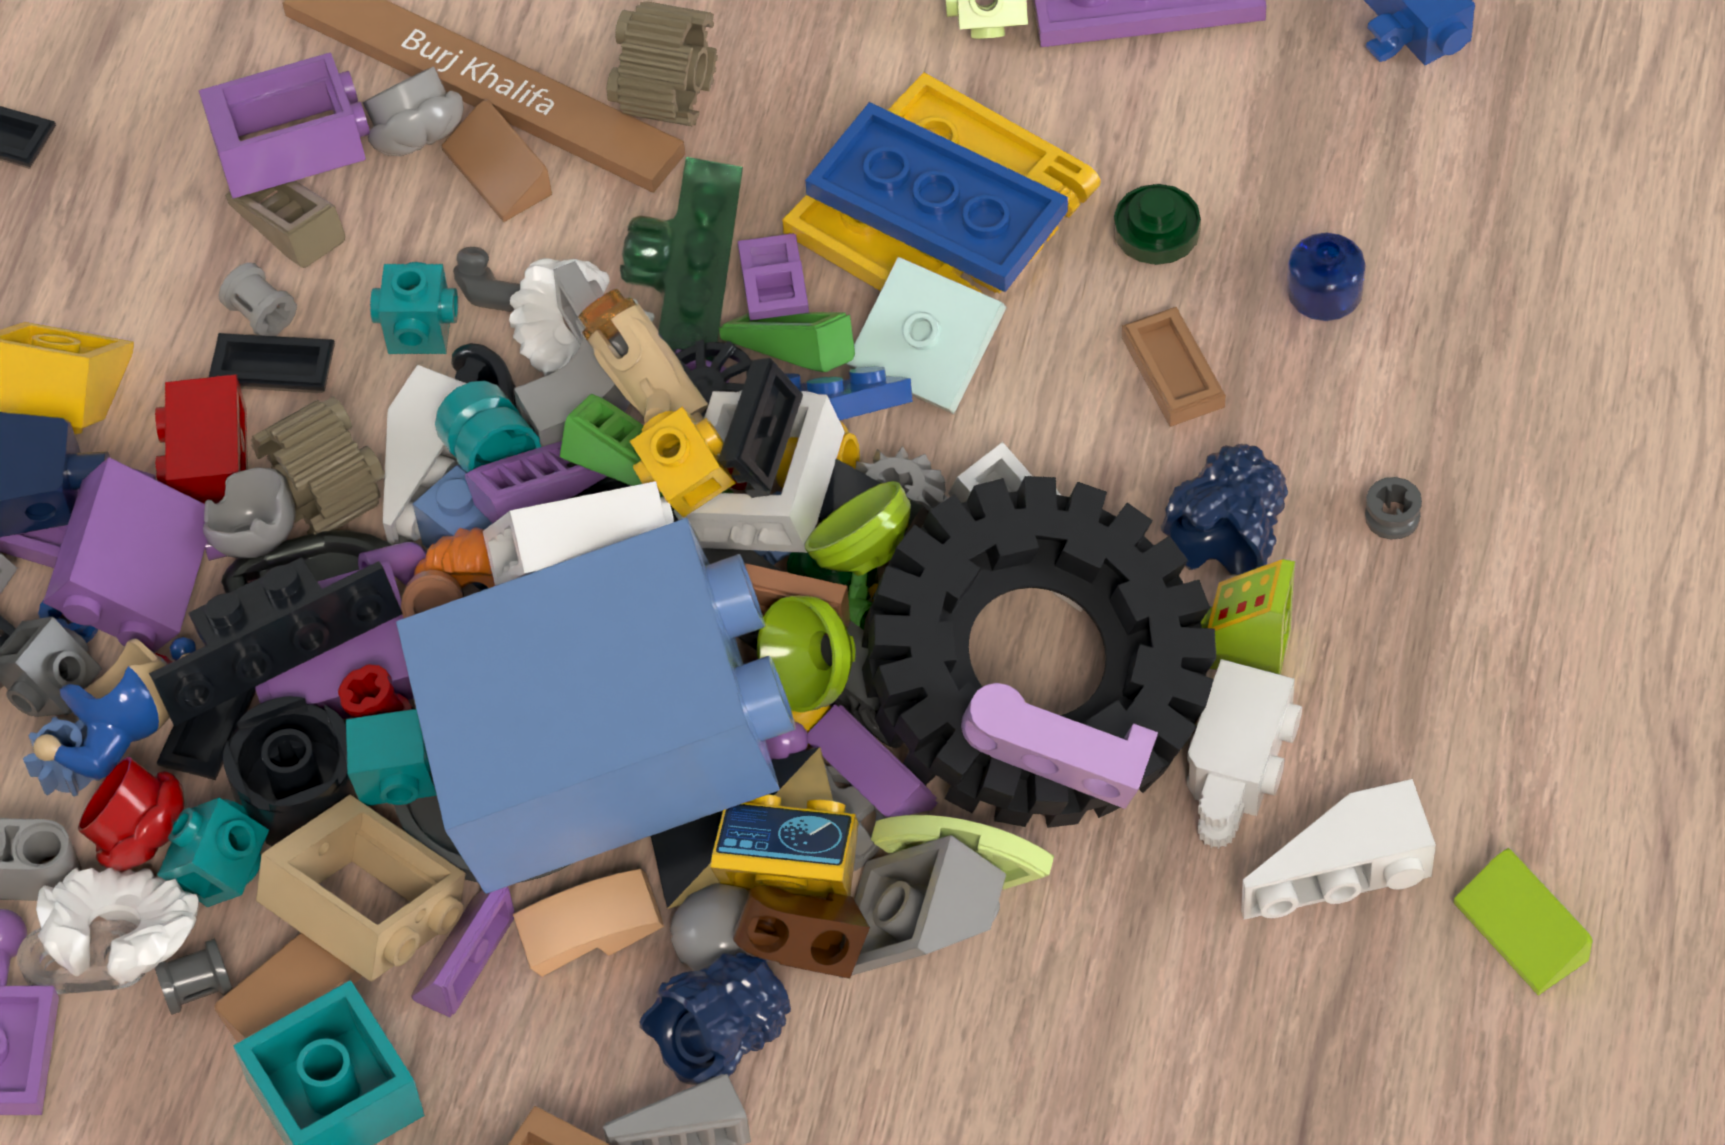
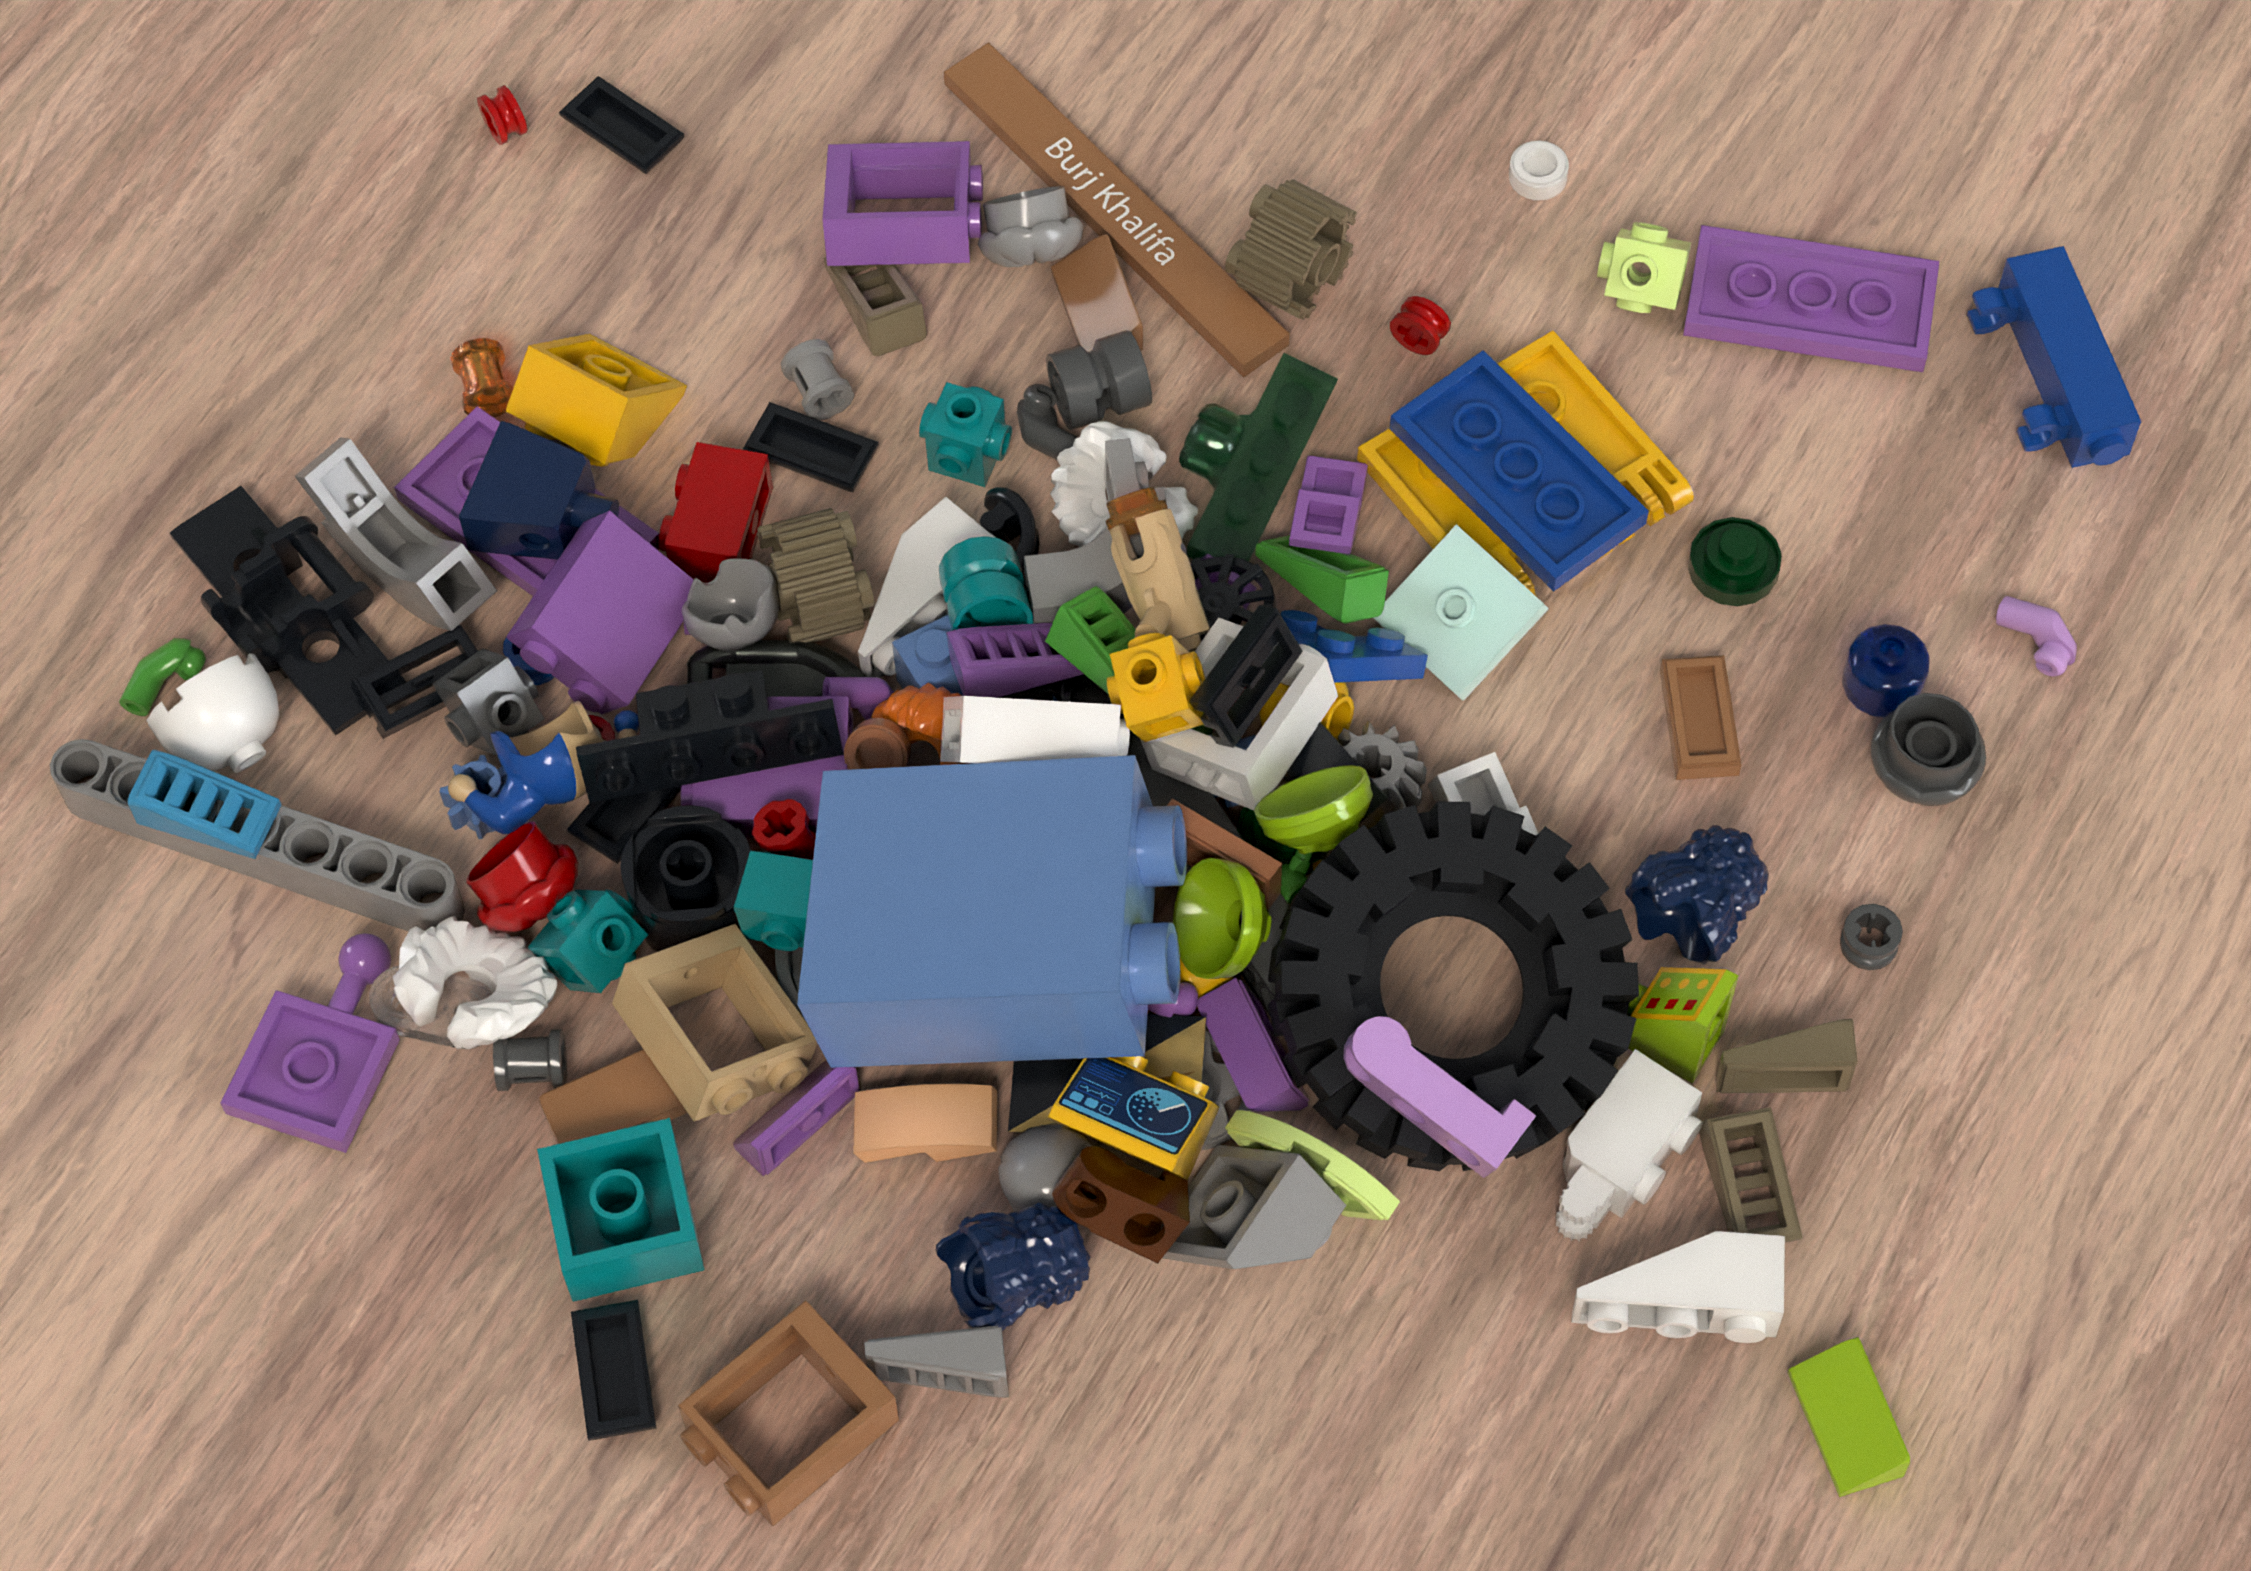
camera: 15 degrees right, 5 degrees up
(528, 224) = (1099, 379): none -> dark grey wheel
(801, 101) = (1420, 325): none -> red bush
(1364, 633) = (1799, 1061): none -> dark tan slope
(1367, 716) = (1760, 1126): none -> dark tan slope
(1388, 332) = (1928, 750): none -> dark grey piece
(1454, 203) = (2047, 629): none -> lavender arm

